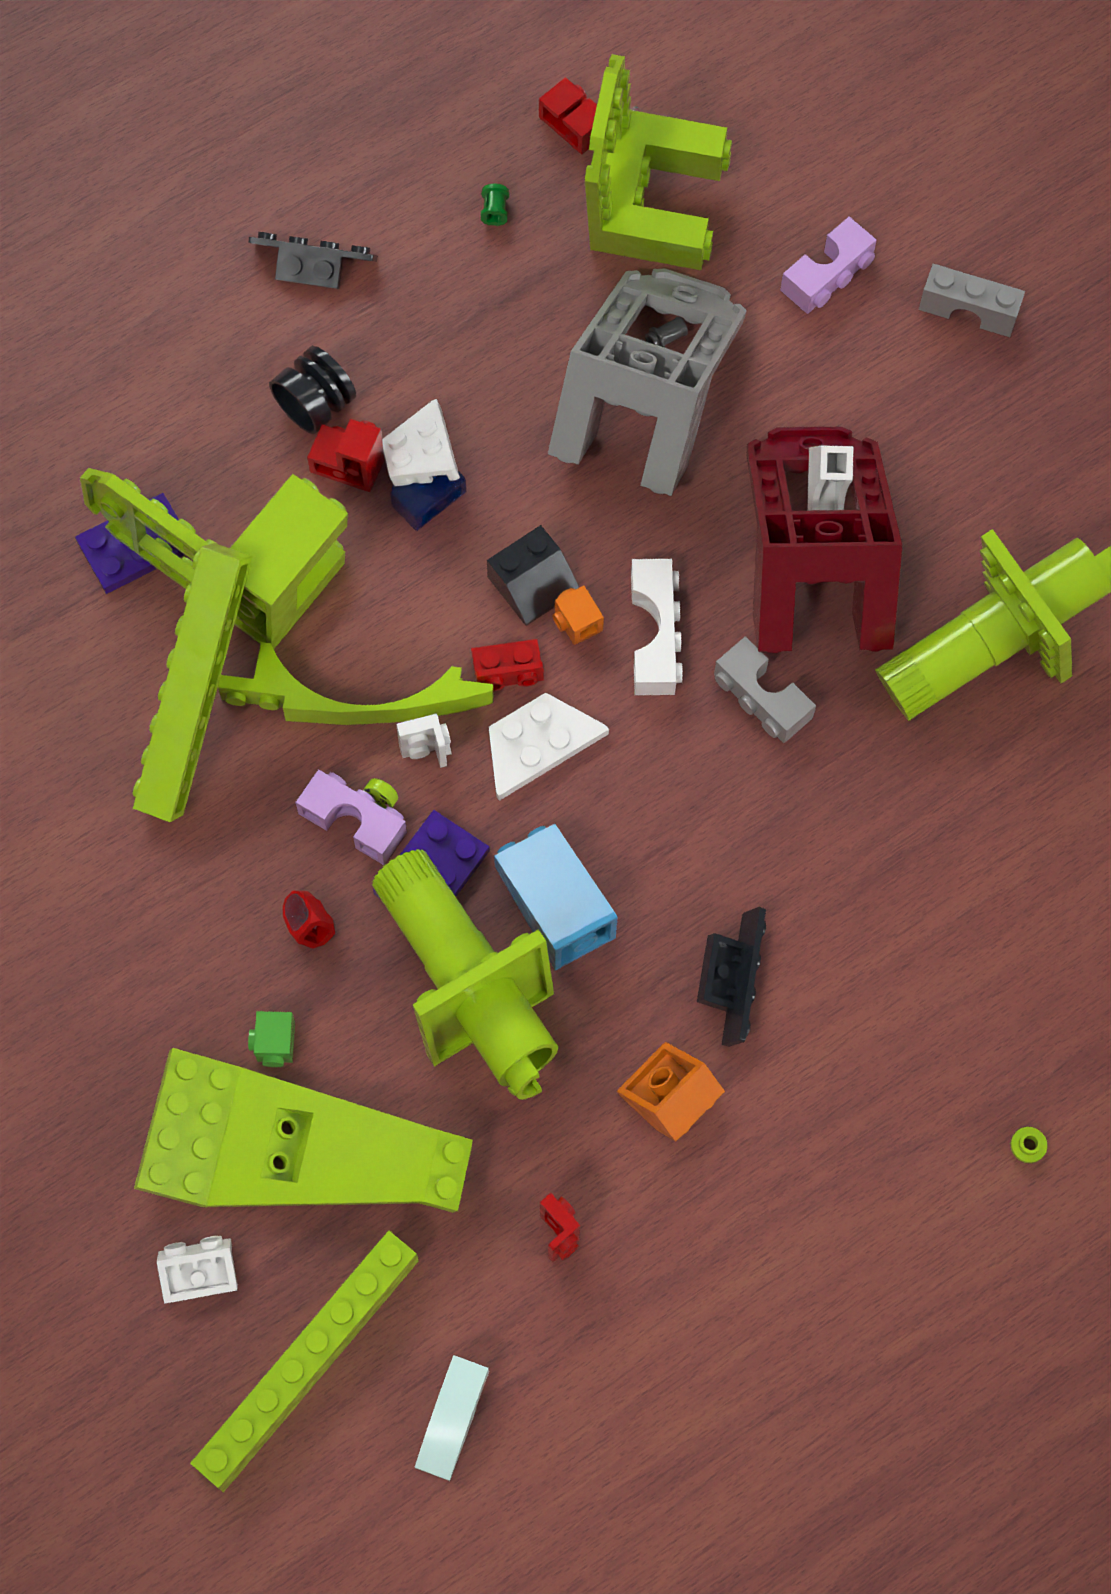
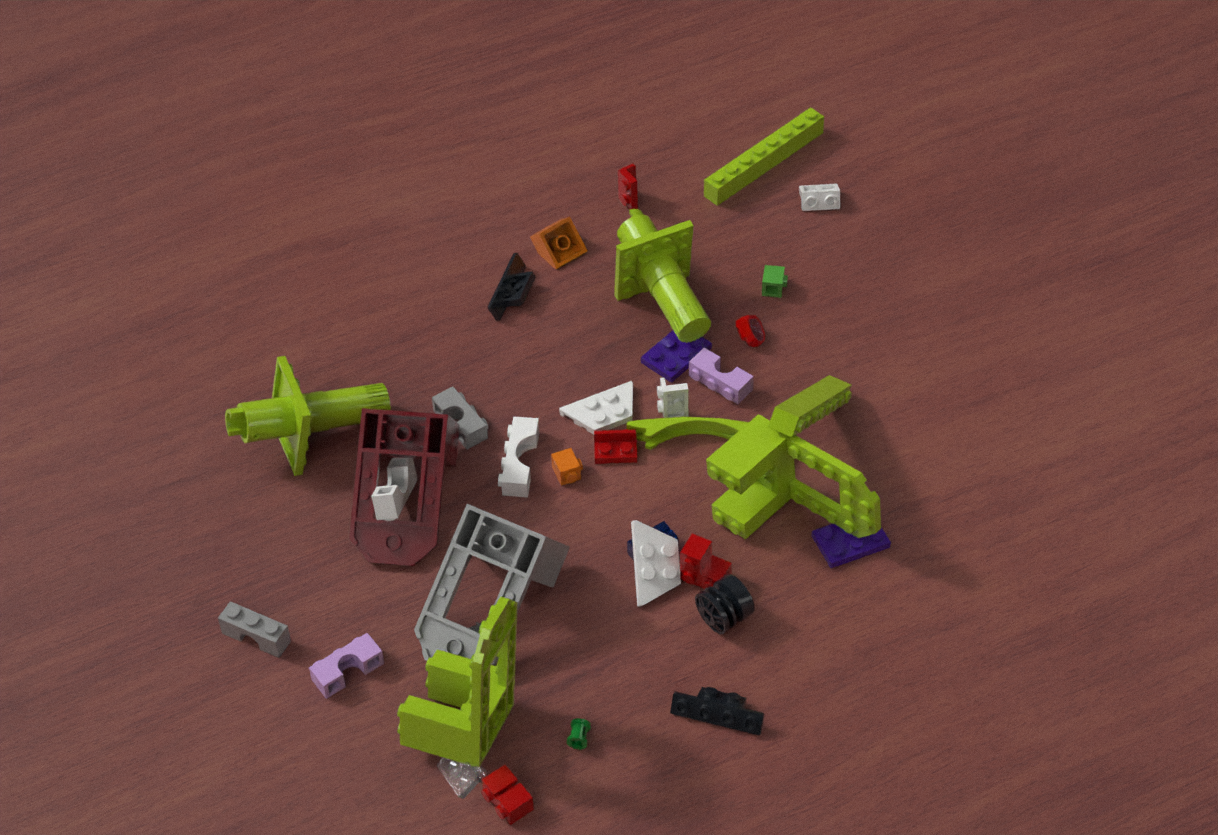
camera: 170 degrees left, 20 degrees down
(222, 1130) = (775, 236): lime wing -> none
(382, 792) = (702, 386): lime tile -> none
(451, 1417) = (692, 134): light aqua slope -> none
(531, 574) = (593, 494): black slope -> none
(556, 895) = (605, 322): slope -> none
(1022, 1153) = (374, 210): lime plate -> none

